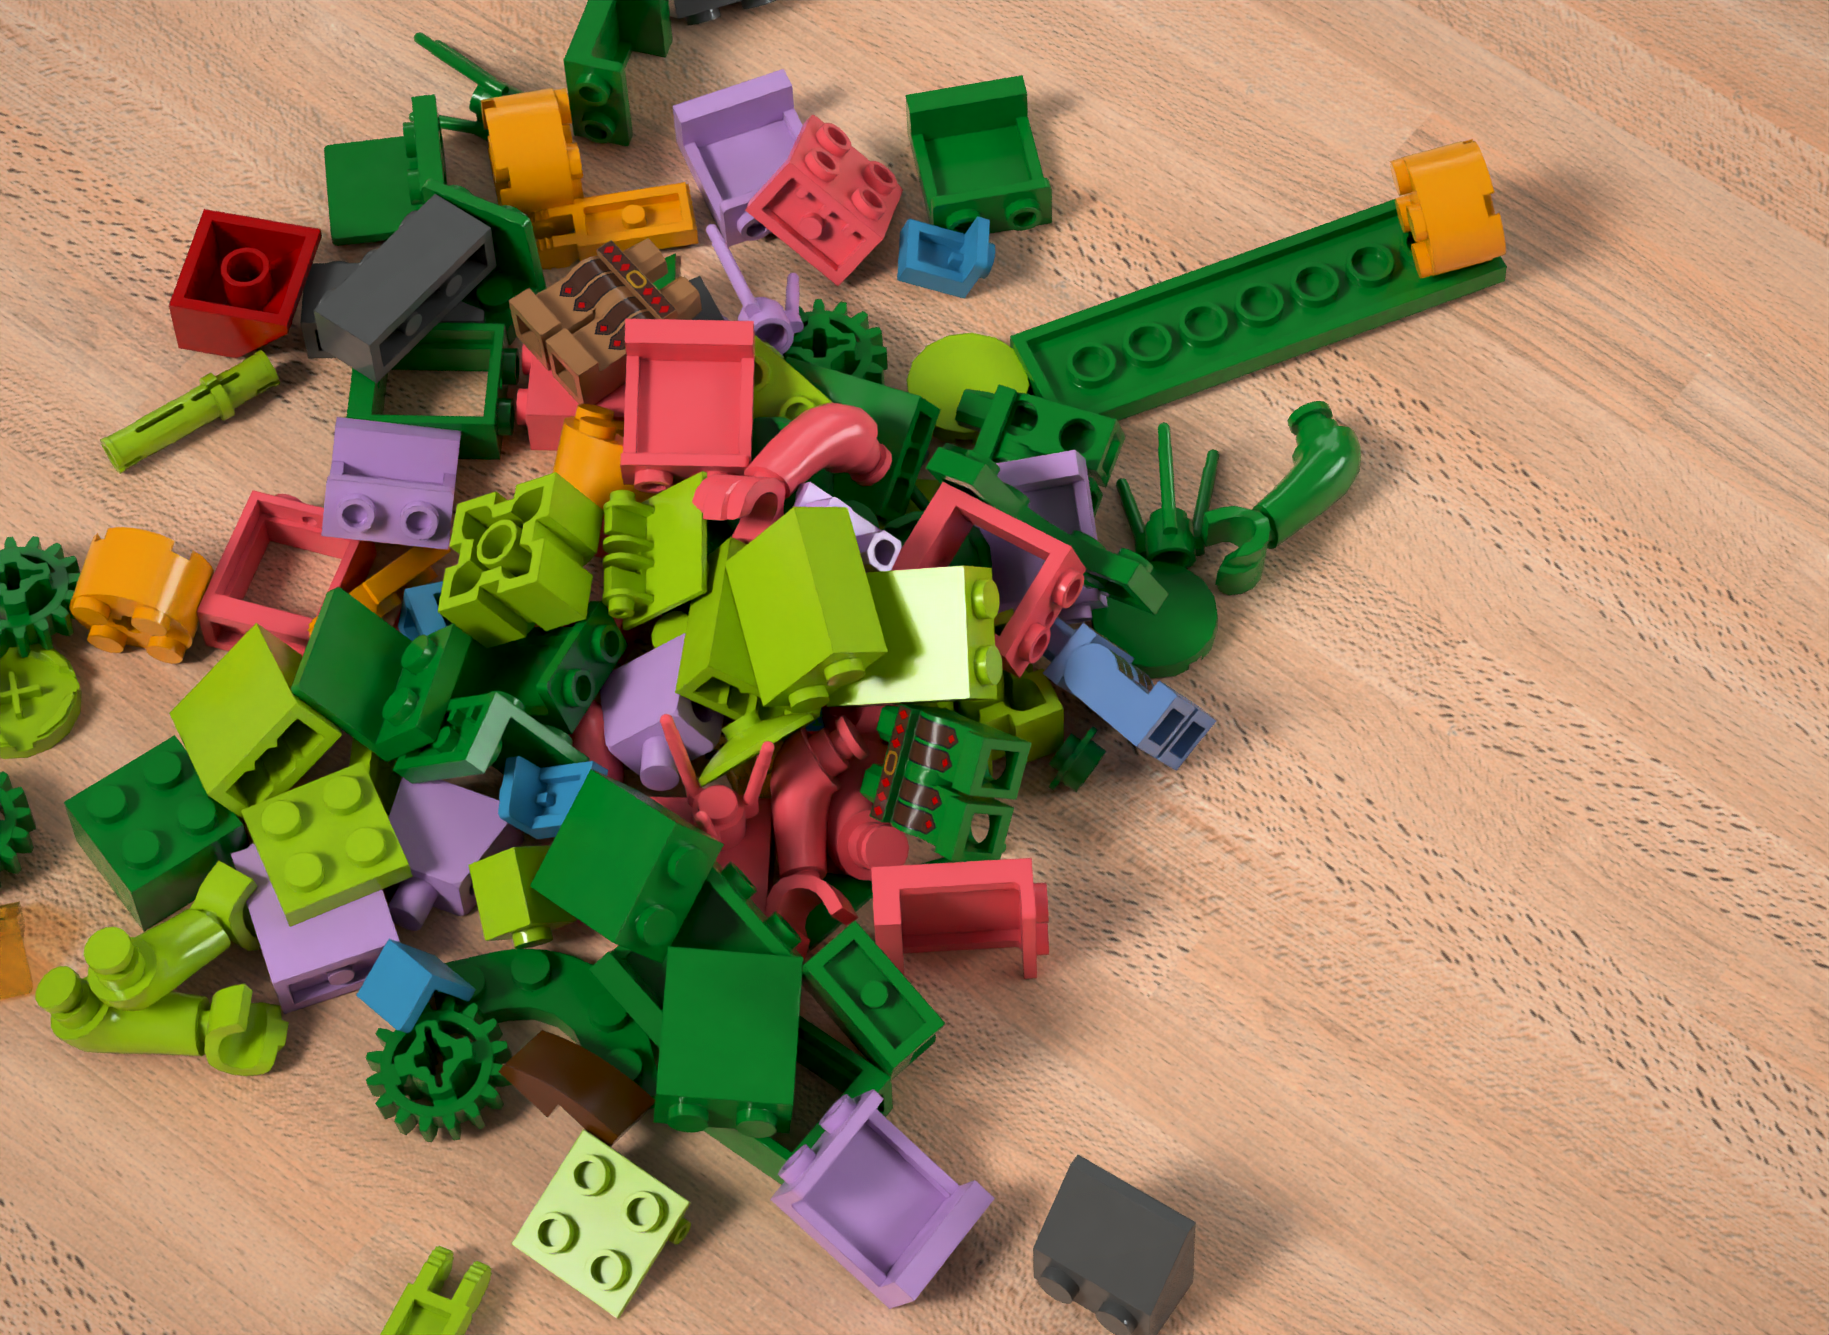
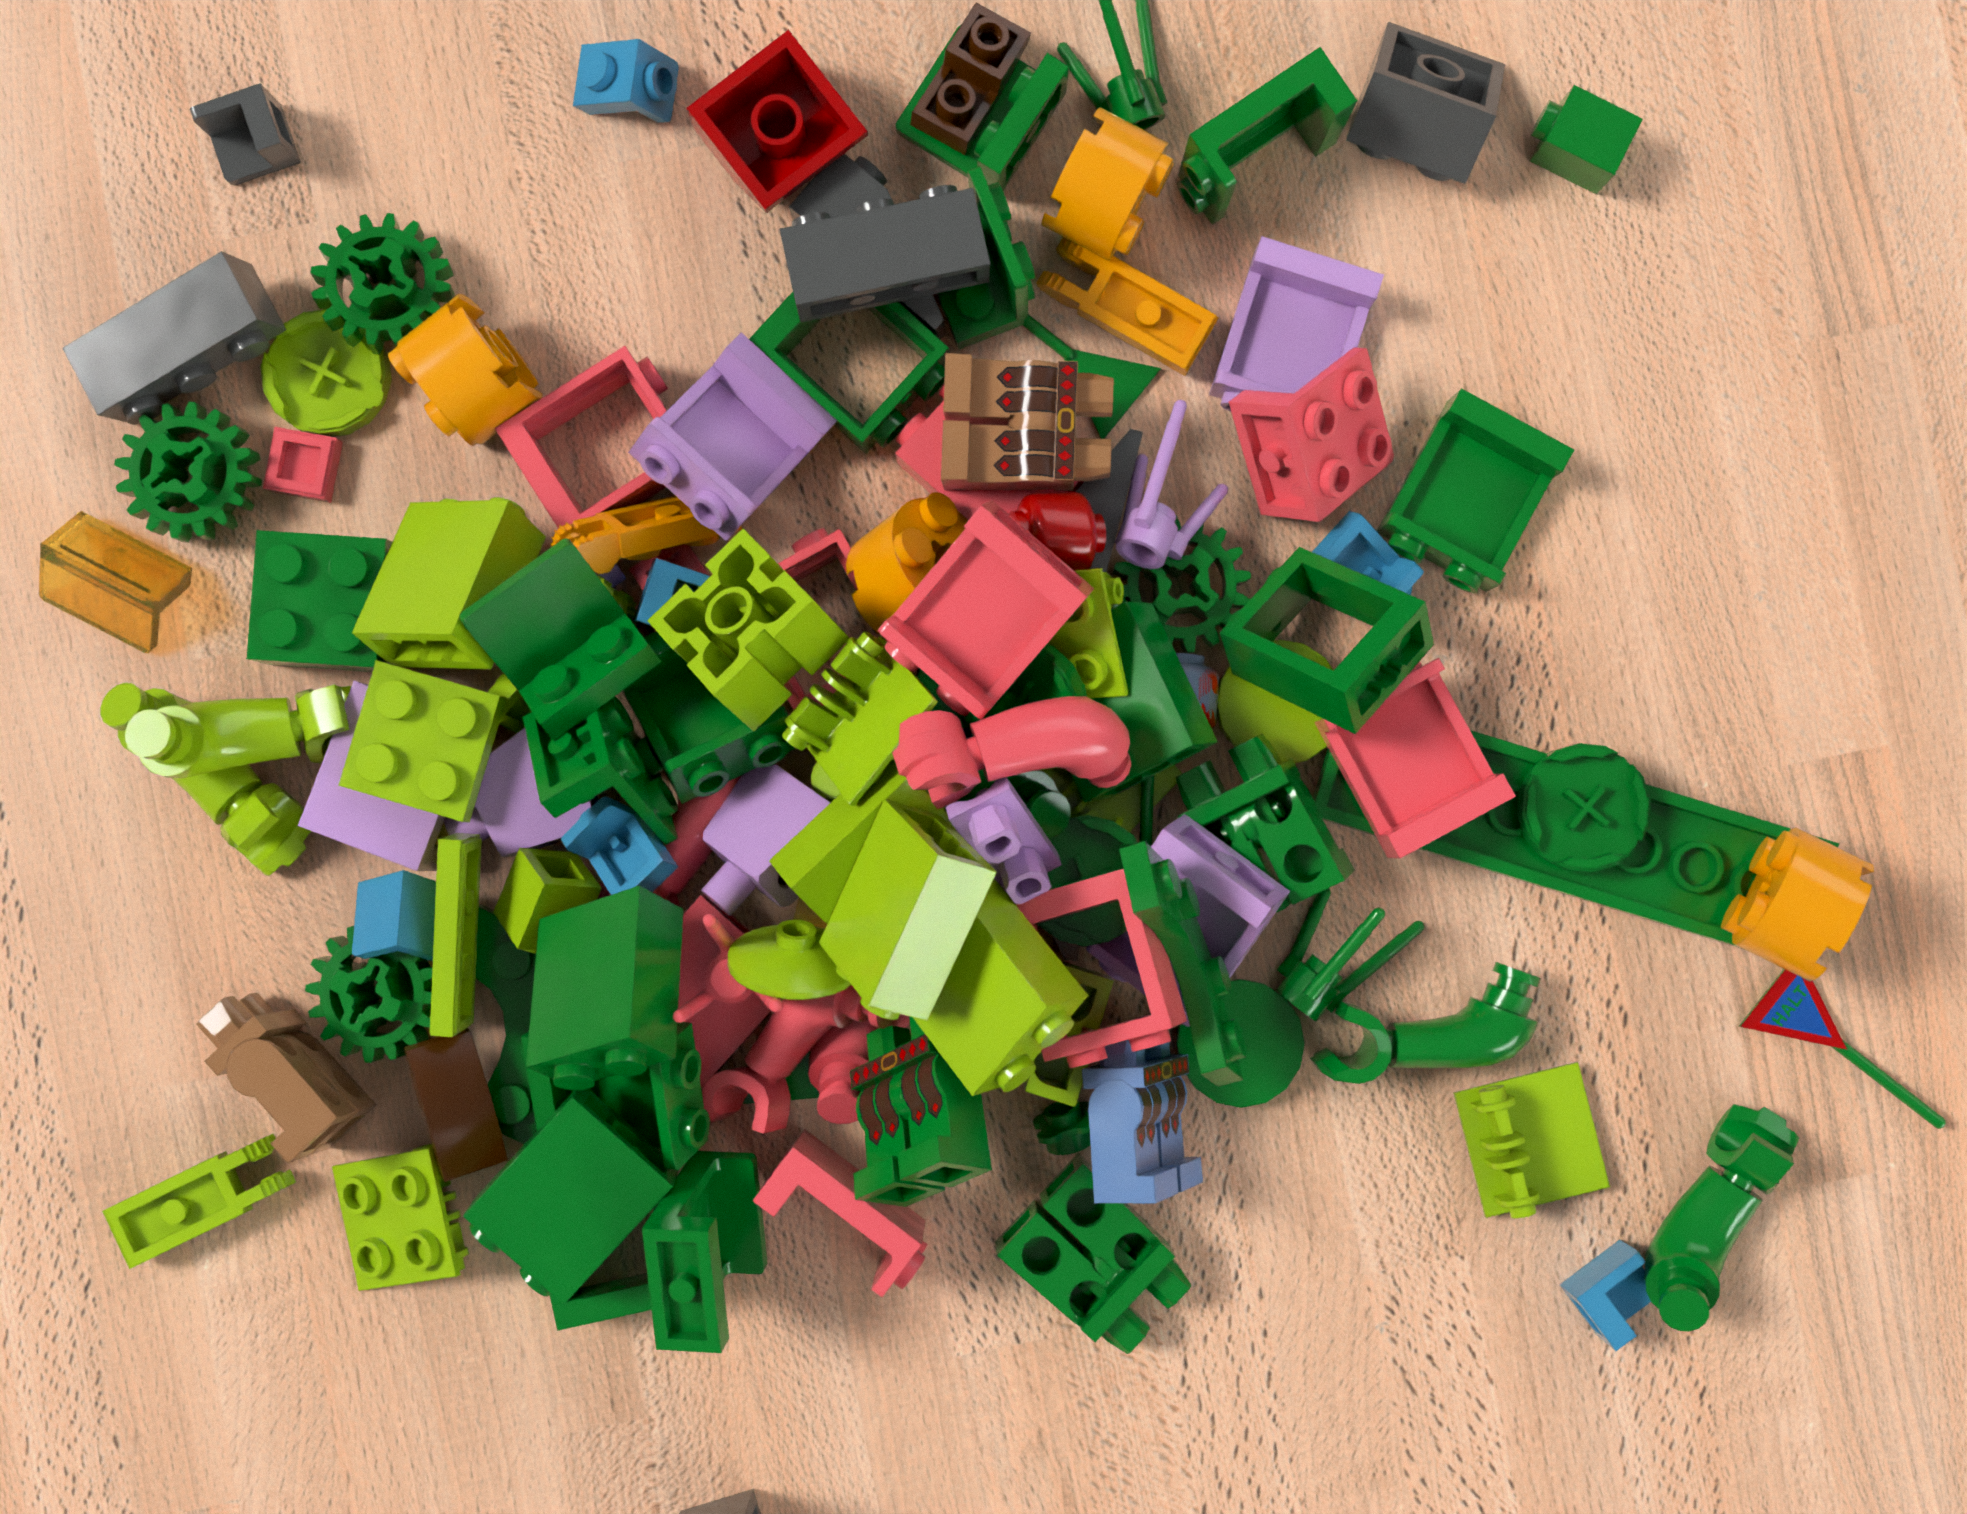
camera: 40 degrees right, 30 degrees up
(50, 772) = (302, 464): none -> coral tile
(92, 346) = (626, 79): none -> dark azure bracket
(212, 399) = (679, 210): lime pin -> none
(364, 166) = (970, 78): none -> reddish brown slope
(416, 1164) = (285, 1073): none -> medium nougat hips
(470, 956) = (455, 934): none -> lime tile
(877, 1200) = (597, 1395): lavender panel -> none
(956, 293) = (1365, 676): none -> green window
(1091, 333) = (1416, 765): none -> coral panel
(1178, 827) = (1106, 1274): none -> green hips
(1249, 280) = (1583, 807): none -> green tile
(1431, 521) = (1531, 1140): none -> lime hinge
(1537, 309) = (1797, 1011): none -> piece
(1589, 573) = (1610, 1292): none -> dark azure panel
(1607, 462) = (1708, 1218): none -> green piece

